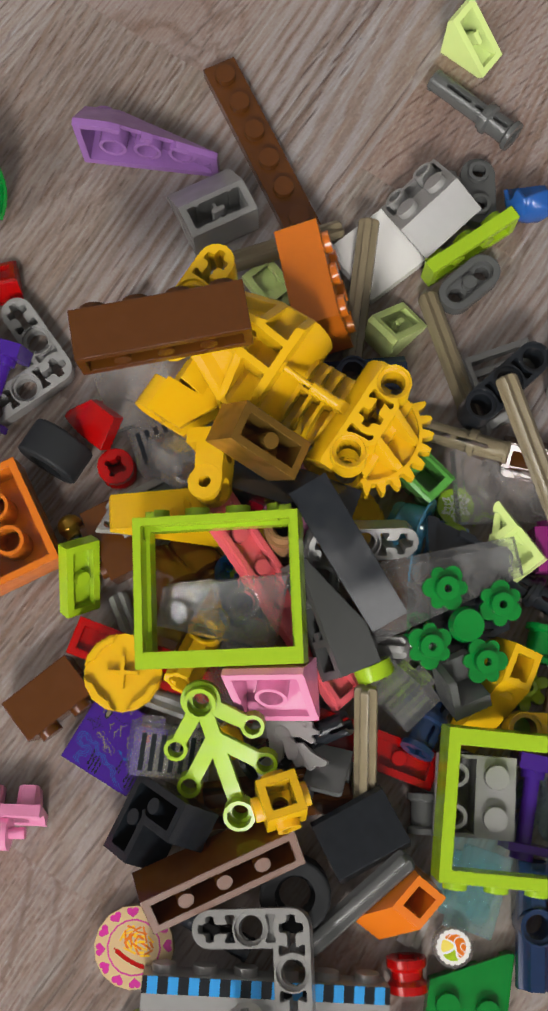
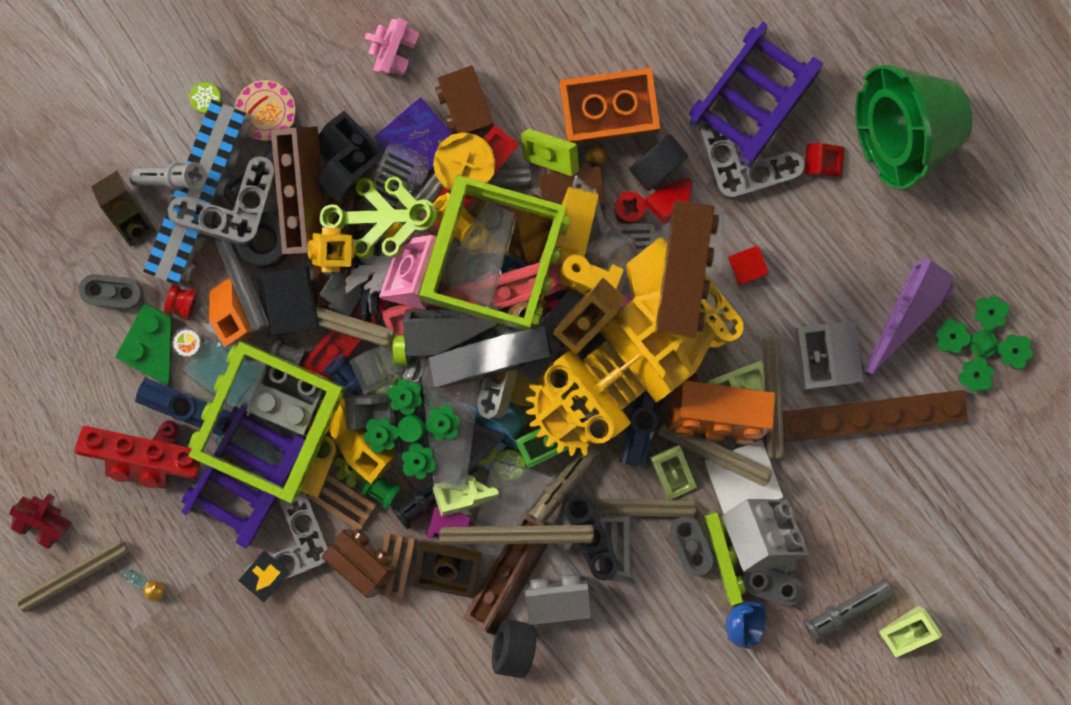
camera: 105 degrees right, 10 degrees up
(148, 68) = (983, 343): none -> green plant

